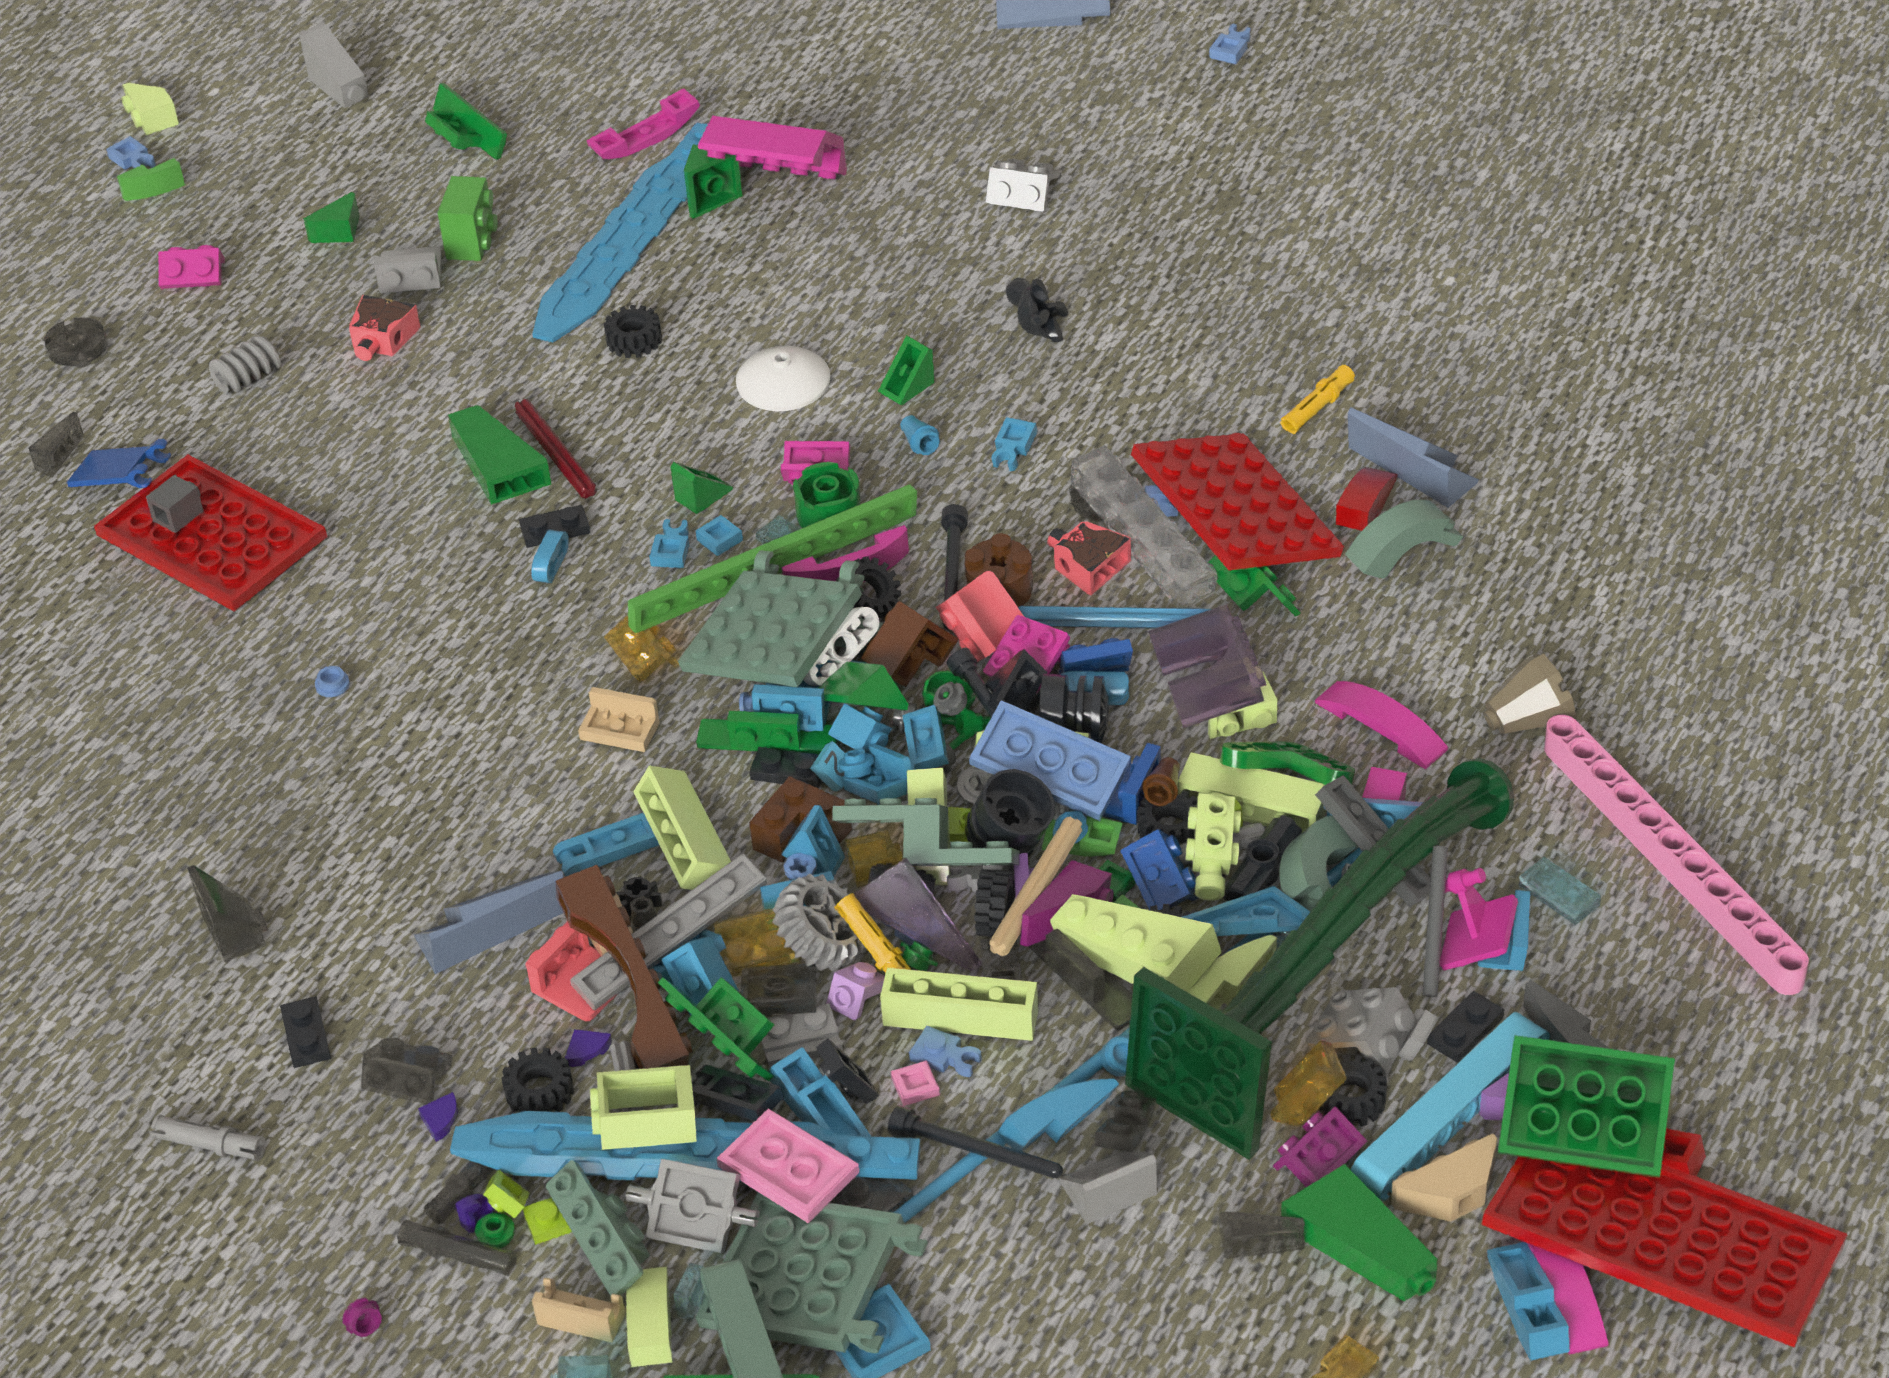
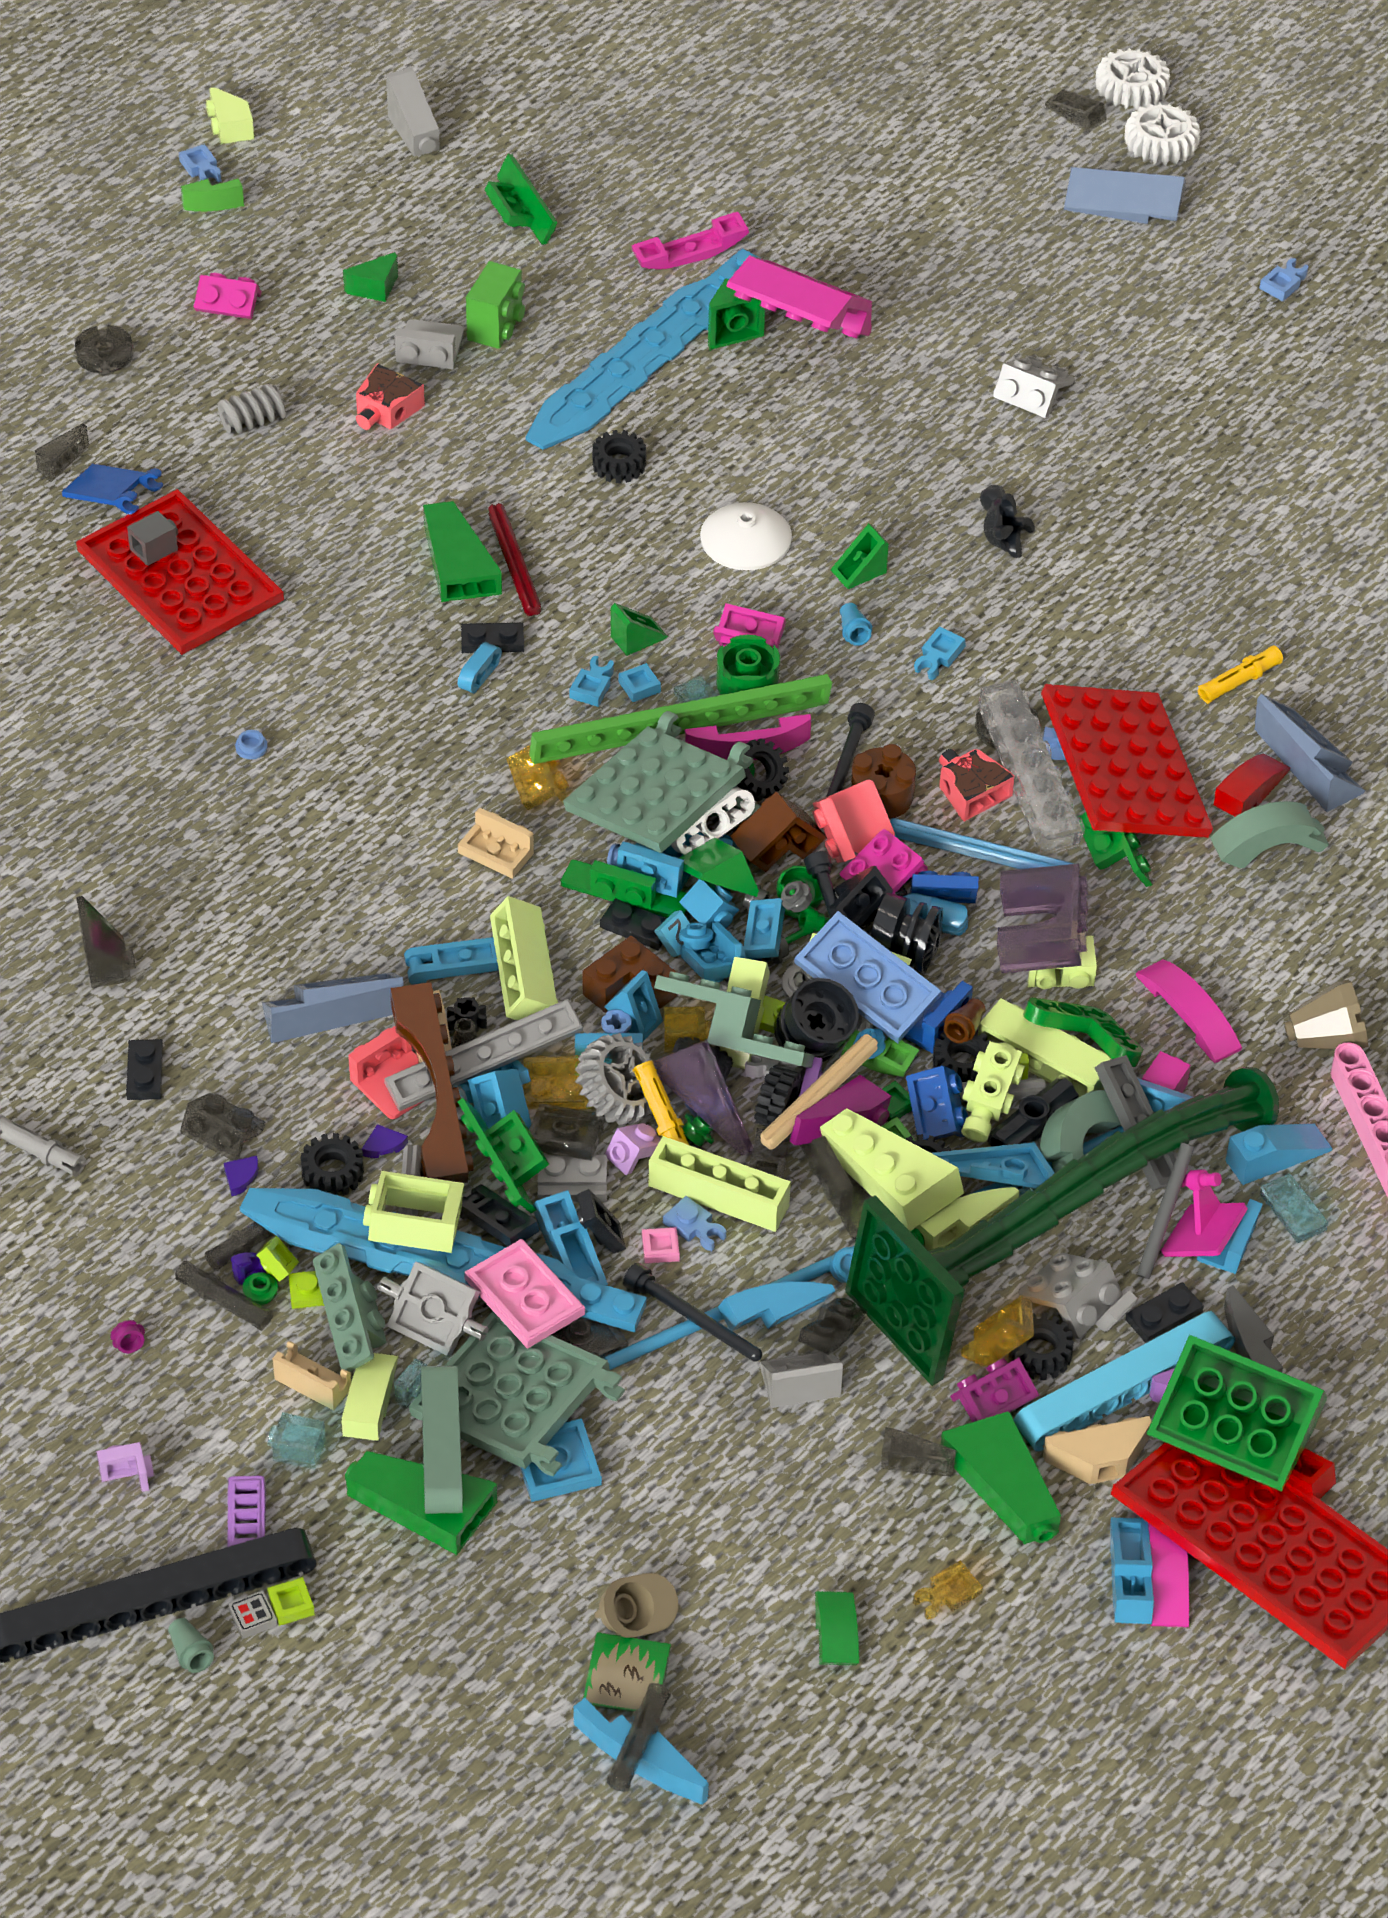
camera: 10 degrees right, 5 degrees up
(1516, 838) = (1273, 1149): none -> dark azure slope

